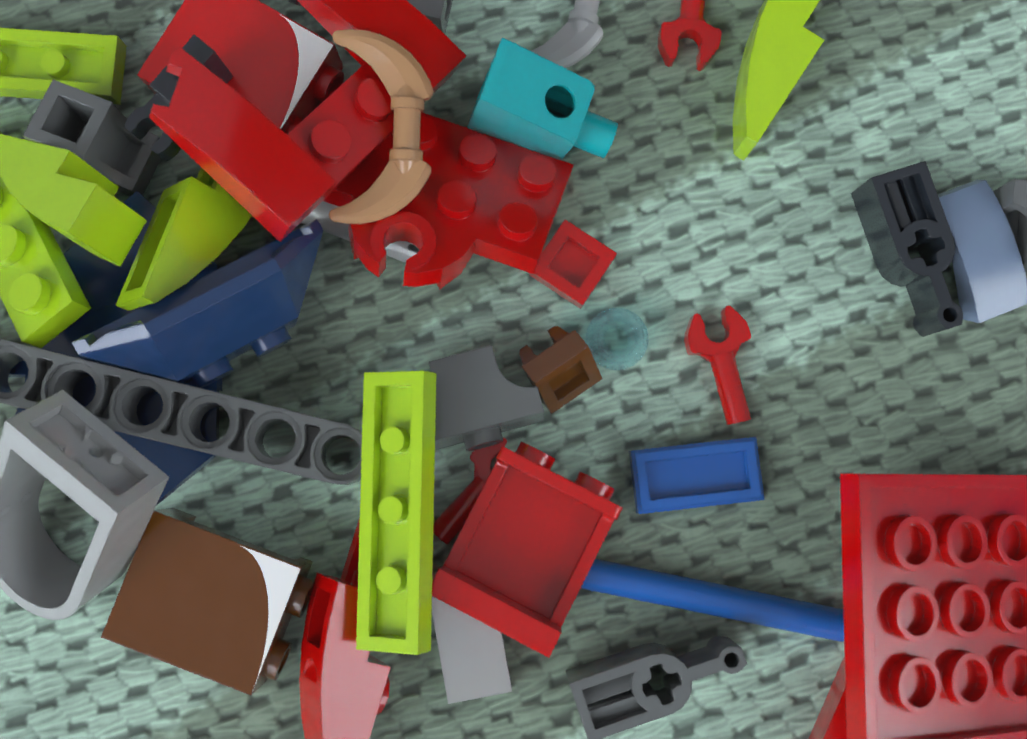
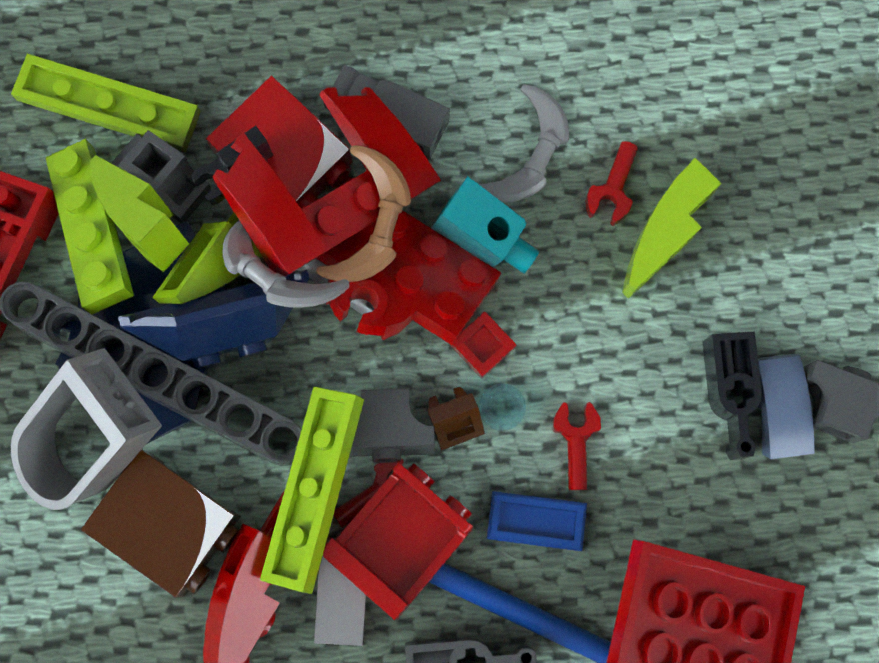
camera: 15 degrees right, 5 degrees down
(221, 223) = (240, 259): none -> light grey piece

